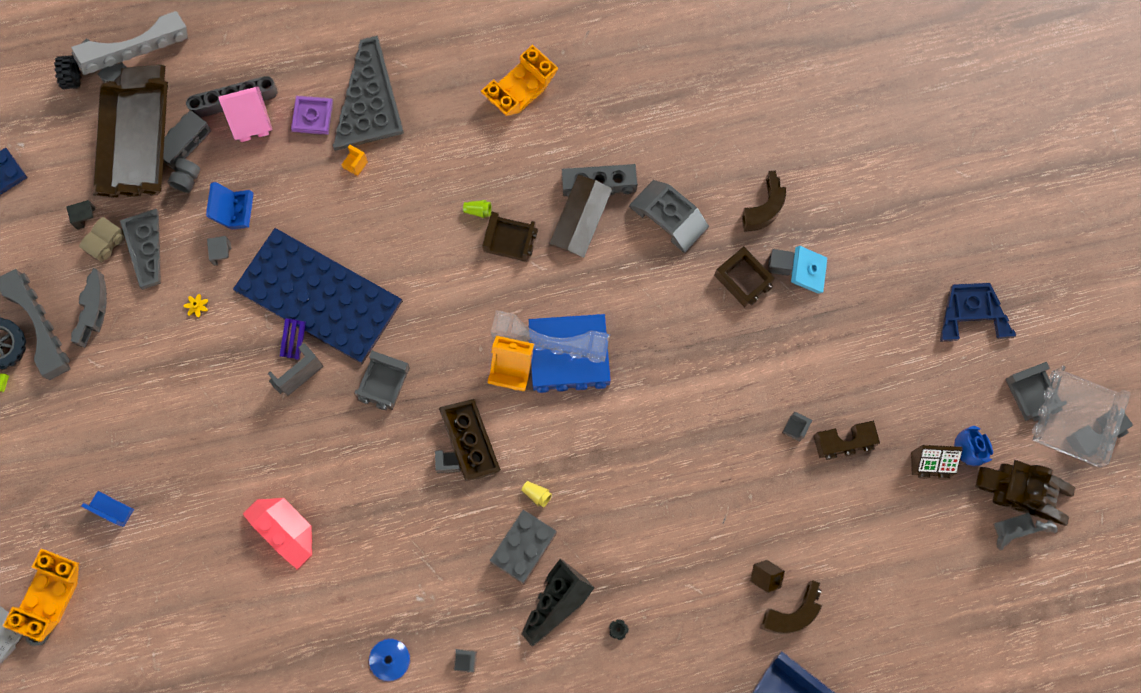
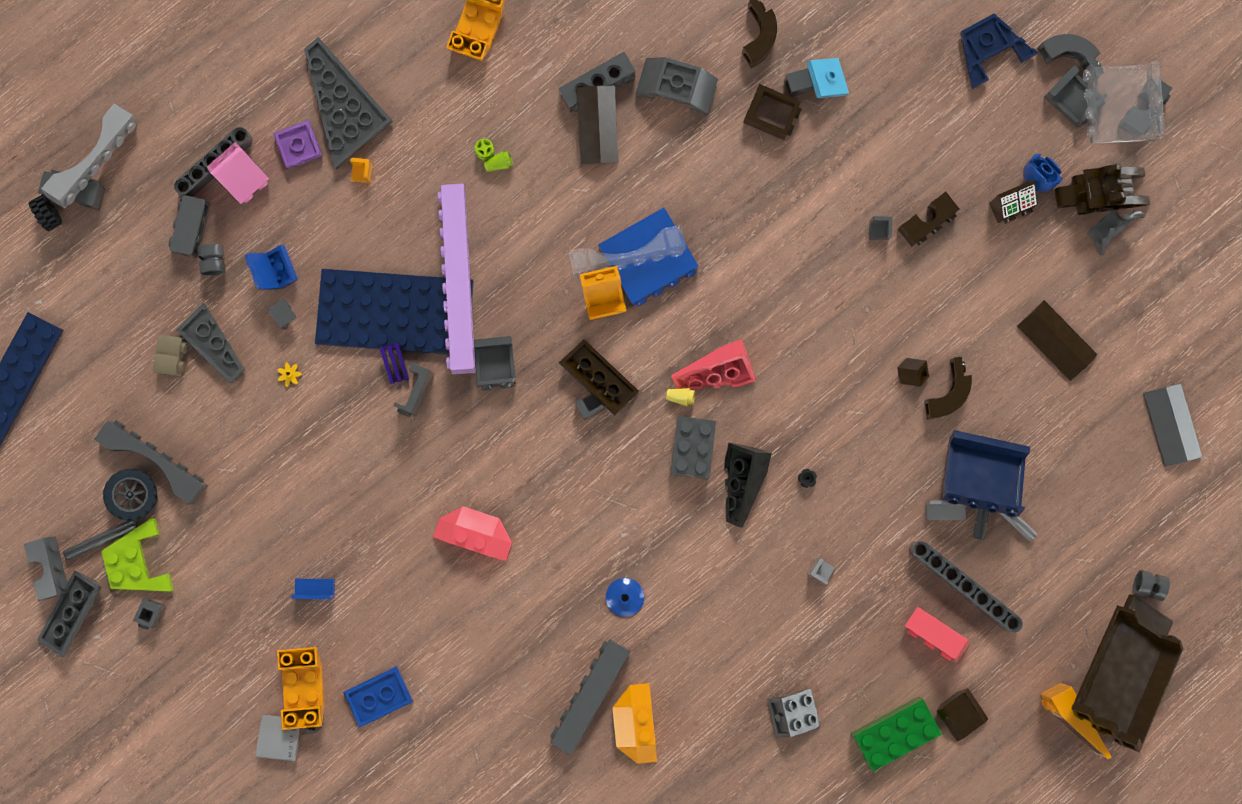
camera: 25 degrees left, 10 degrees up
(80, 212) = (136, 340): pearl dark grey panel -> none
(94, 303) = (195, 415): dark grey slope -> none
(111, 640) = (378, 696): none -> blue tile
(131, 133) = (142, 242): dark brown panel -> none
(385, 293) = (457, 279): none -> lavender brick
(465, 660) = (690, 566): dark grey panel -> none
(469, 188) = (483, 145): none -> lime wheel
(509, 238) = (542, 176): dark brown panel -> none
(585, 484) = (721, 367): none -> coral wedge
(921, 613) = (1057, 340): none -> dark brown slope
(1048, 343) = (1069, 46): none -> dark grey arch

